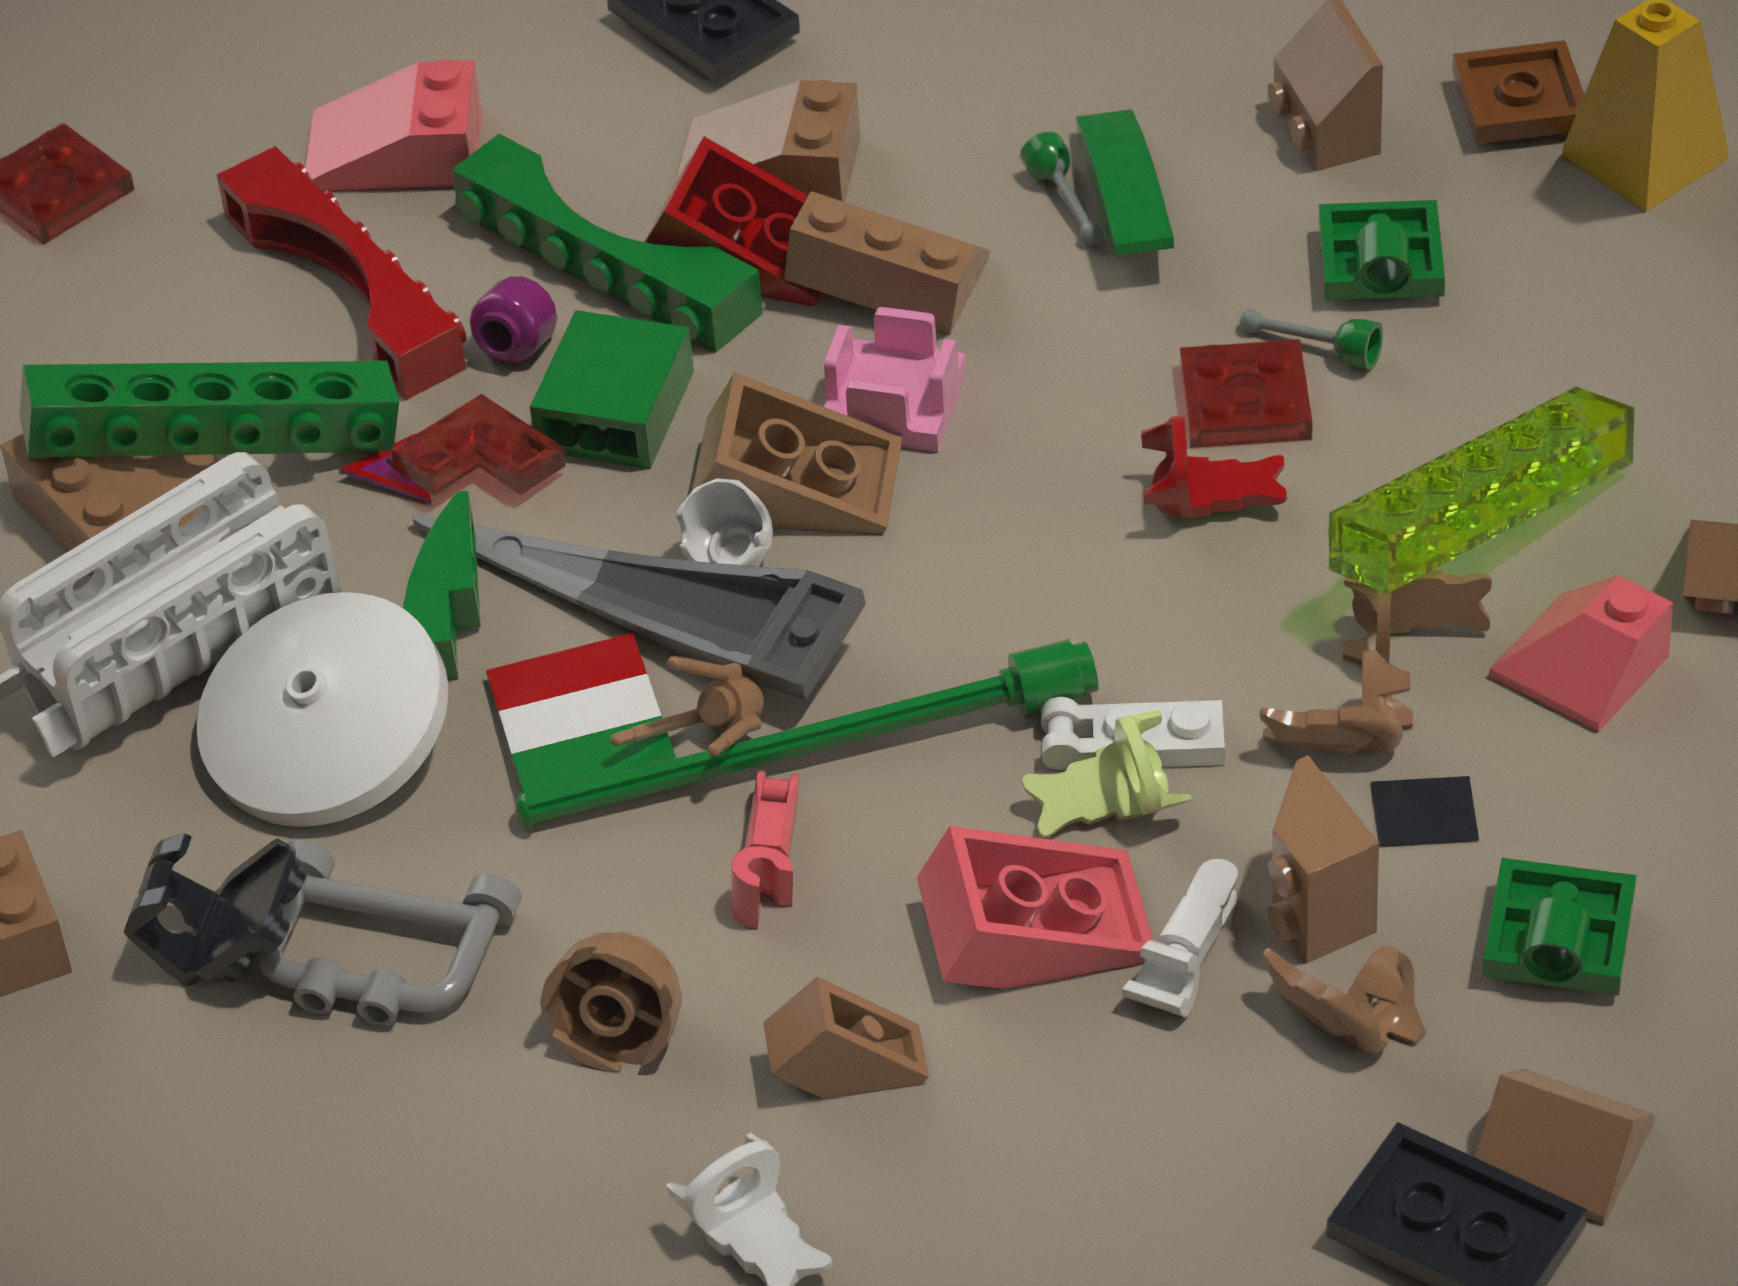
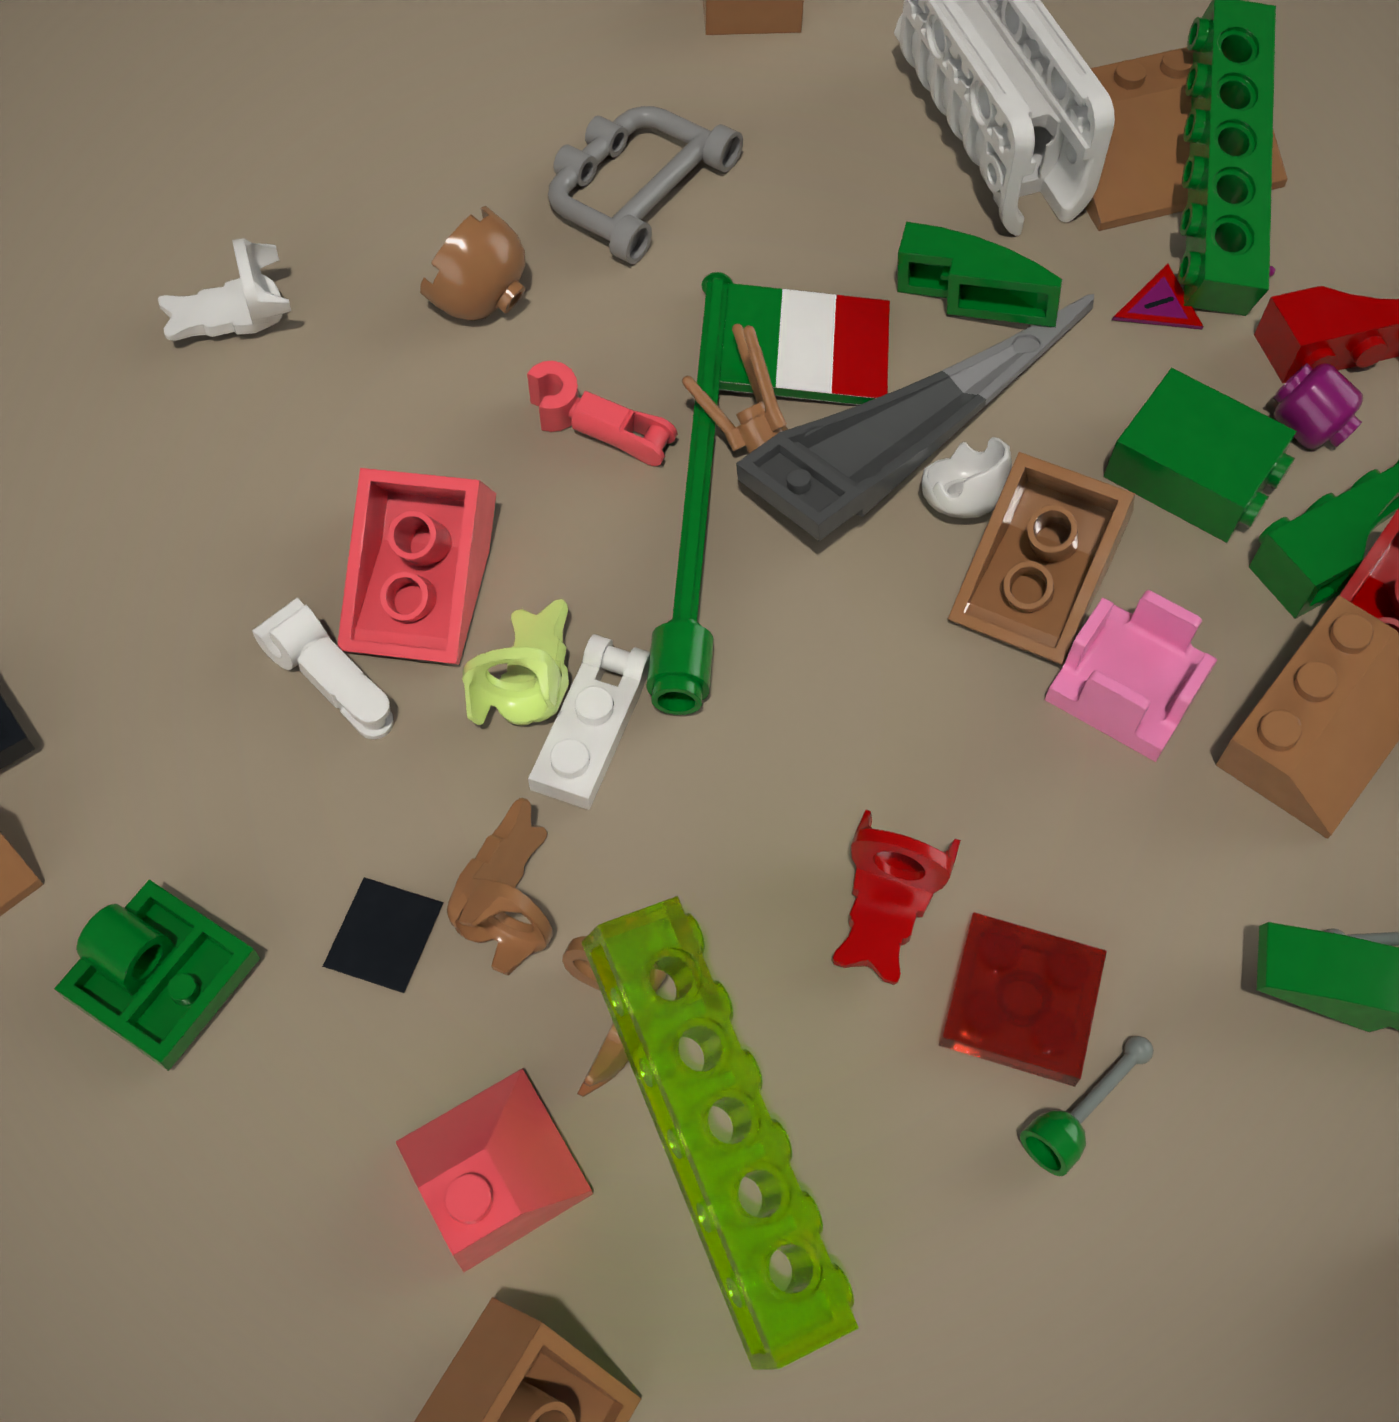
camera: 105 degrees right, 15 degrees up
(225, 923) = (675, 85): black piece -> none
(322, 709) = (870, 177): white dish -> none
(478, 437) = (1159, 338): clear red plate -> none
(842, 1044) = (353, 400): medium nougat slope -> none
(1321, 868) = (310, 768): medium nougat slope -> none
(1381, 250) = (1211, 1236): green plate -> none
(1385, 976) = (167, 744): medium nougat hair -> none

